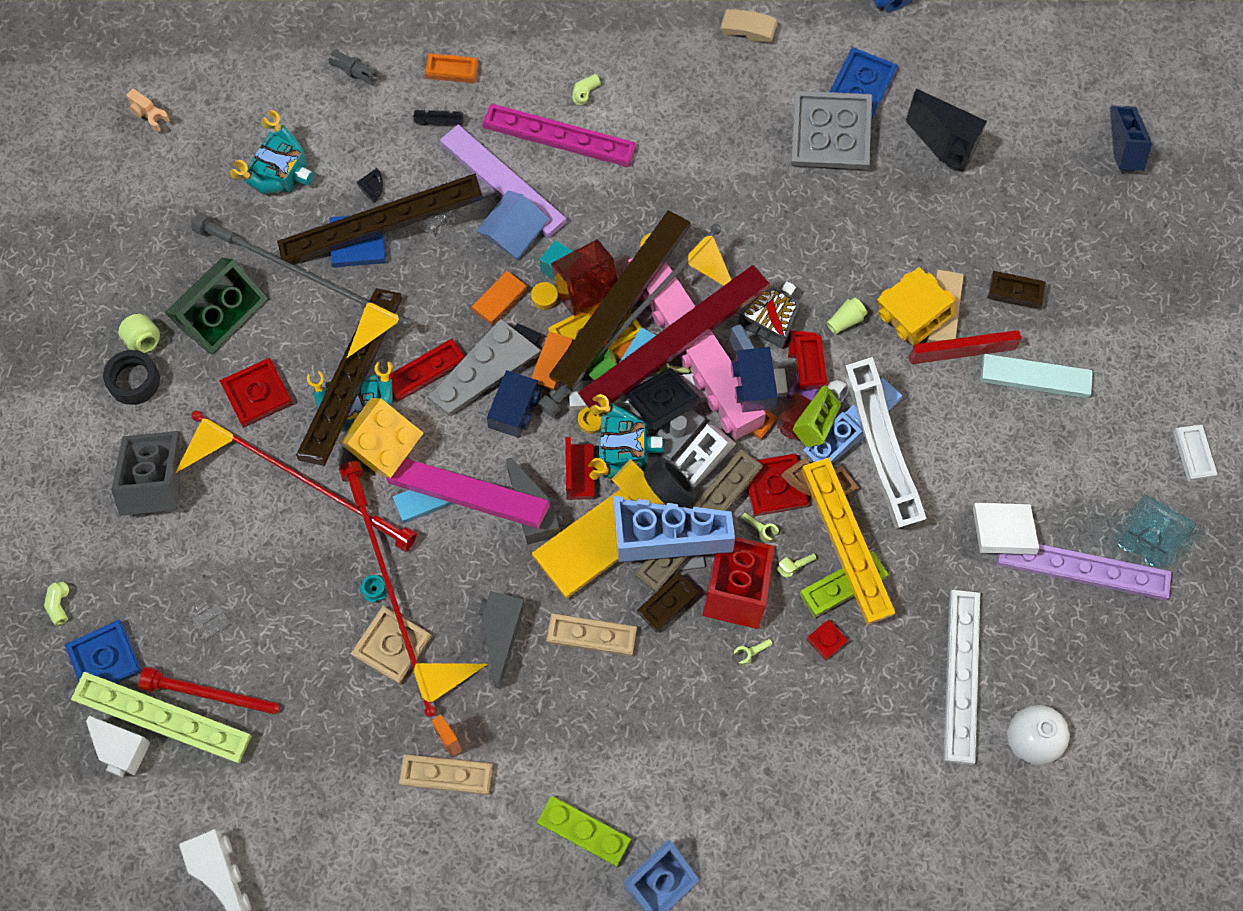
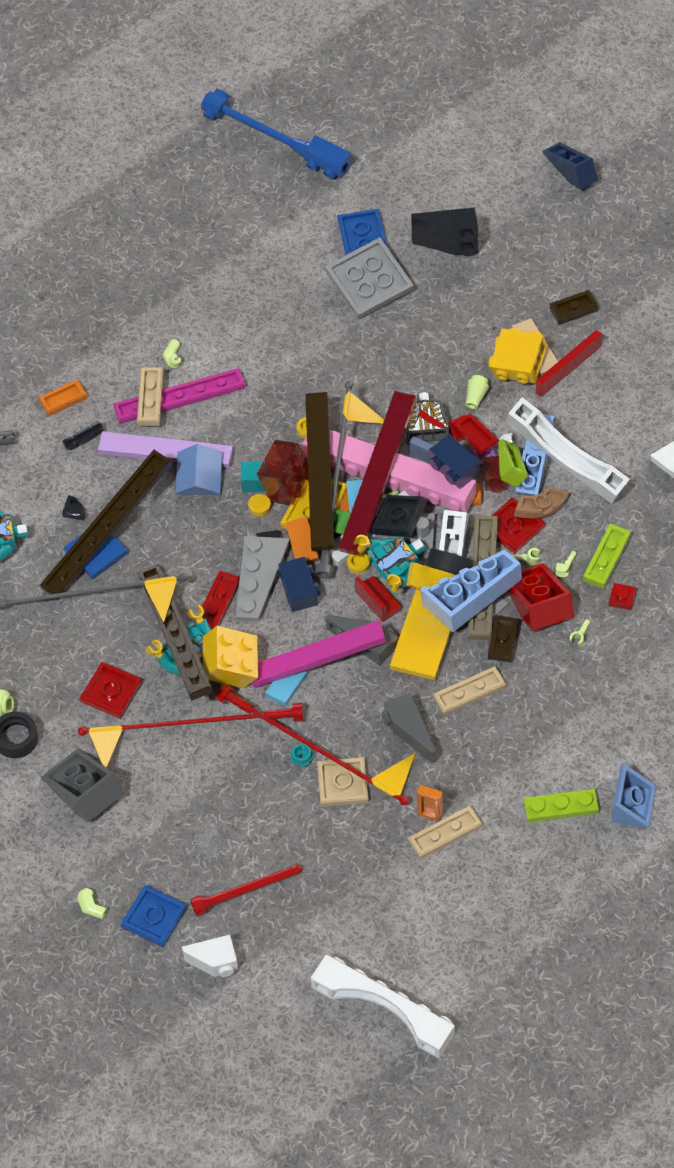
camera: 30 degrees left, 10 degrees down
(161, 717) = (229, 920): yellowish green plate -> none
(216, 305) = (33, 651): dark green slope -> none
(499, 298) = (229, 526): orange tile -> none
(528, 118) = (150, 396): none -> tan tile
(754, 25) = (256, 240): tan slope -> none
(848, 541) = (589, 525): yellow plate -> none
(1036, 376) = (628, 353): light aqua tile -> none

